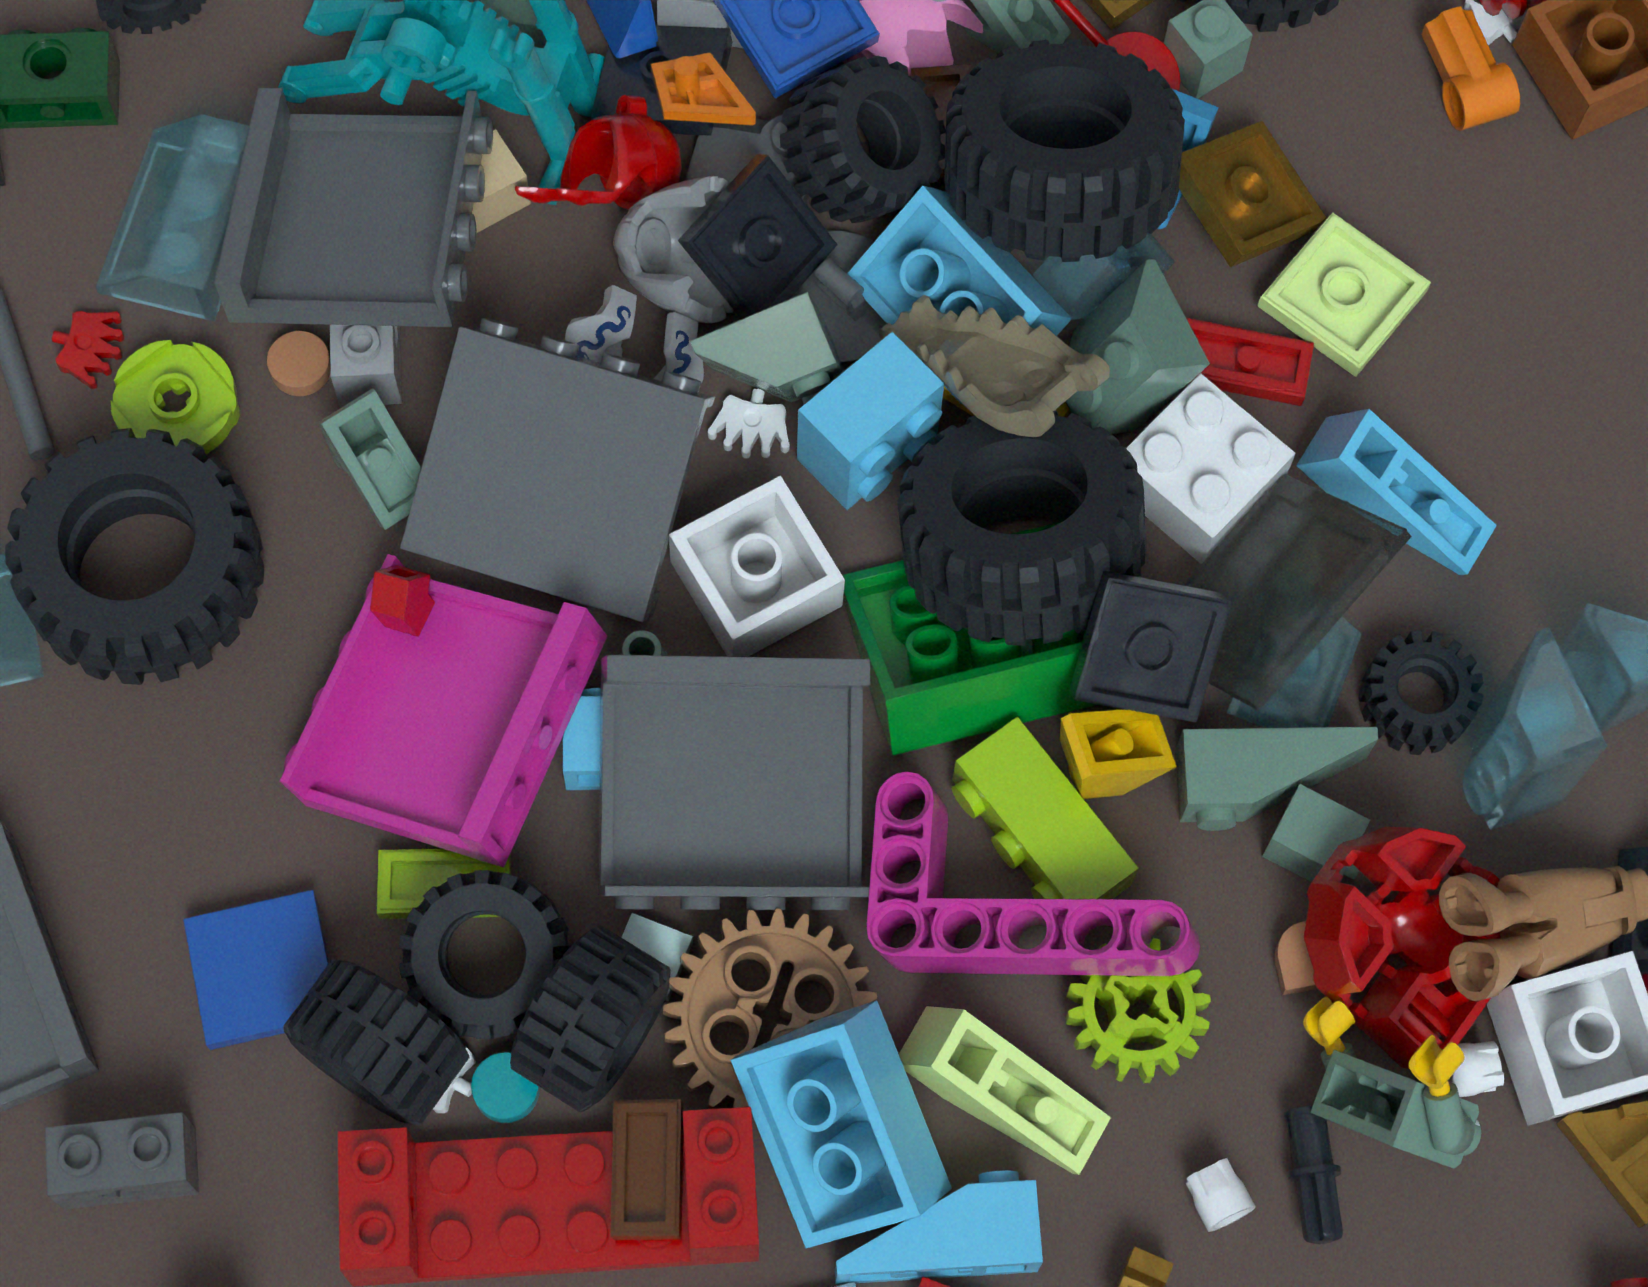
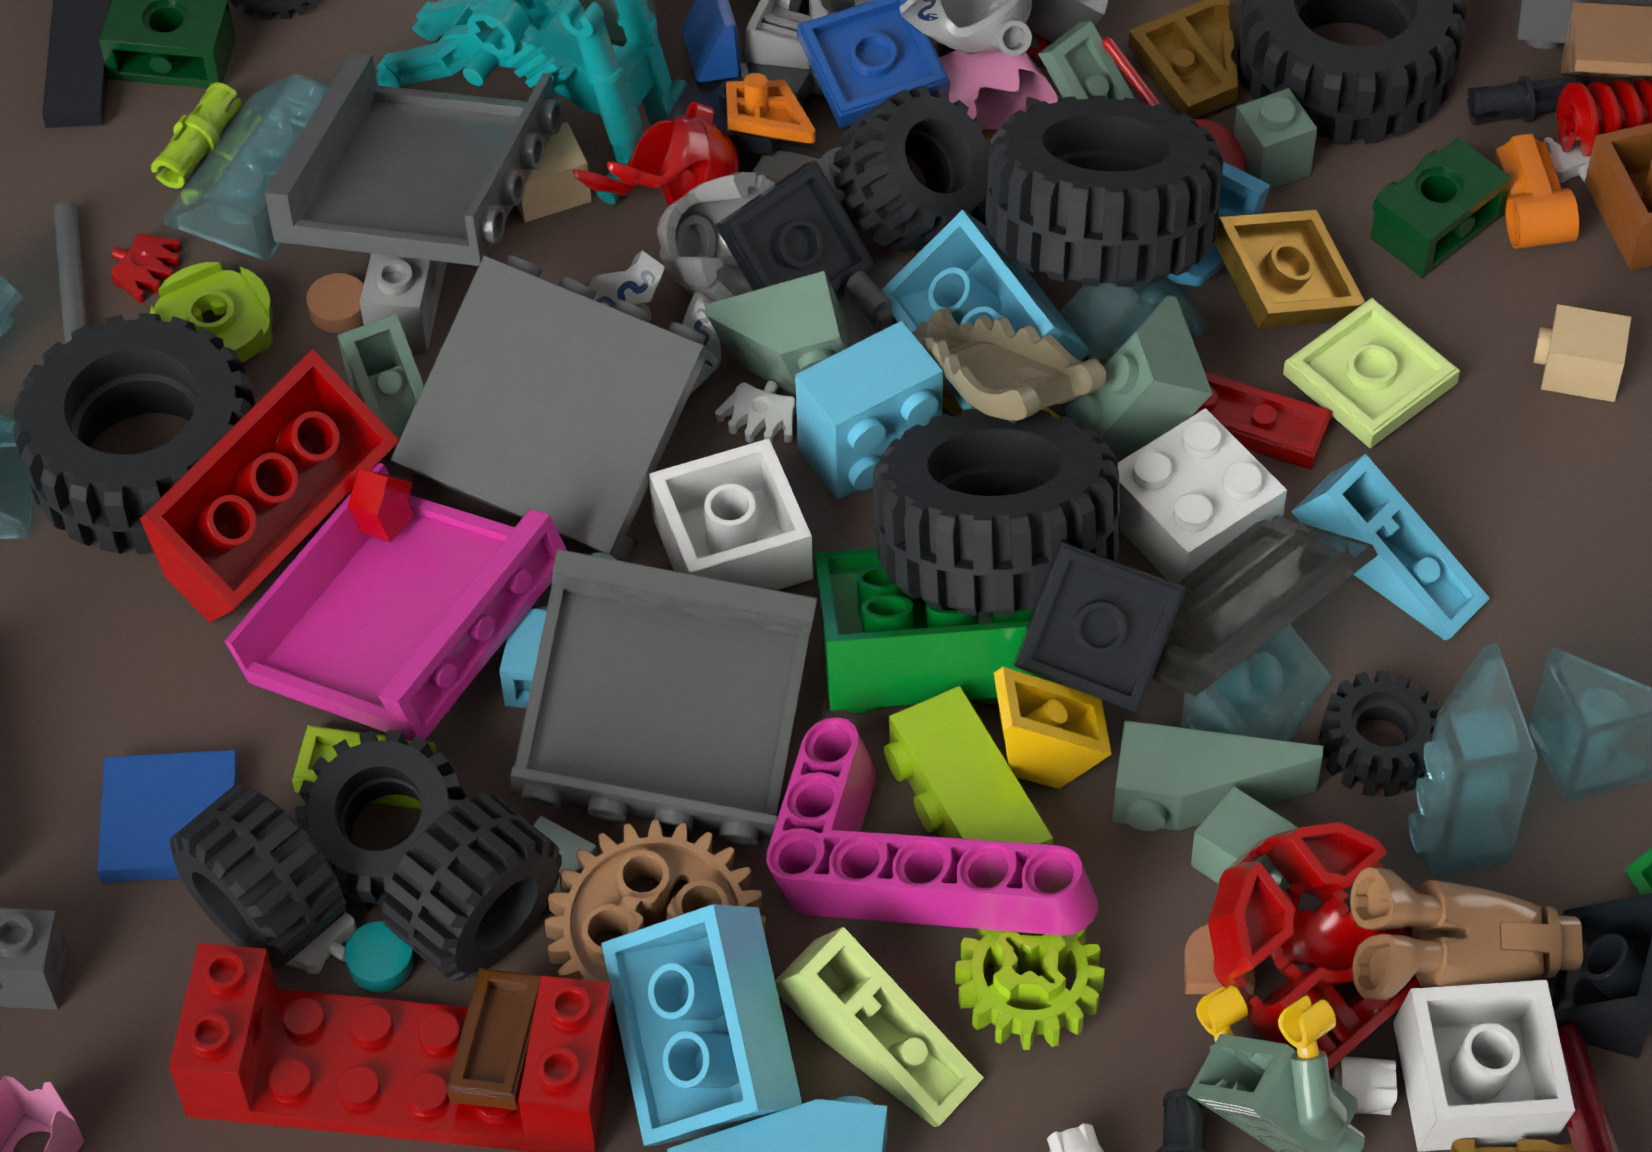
camera: 15 degrees right, 15 degrees down
(108, 189) = (196, 135): none -> lime pin
(286, 606) = (264, 487): none -> red slope
(1370, 127) = (1439, 207): none -> dark green brick
(1546, 244) = (1583, 352): none -> tan brick

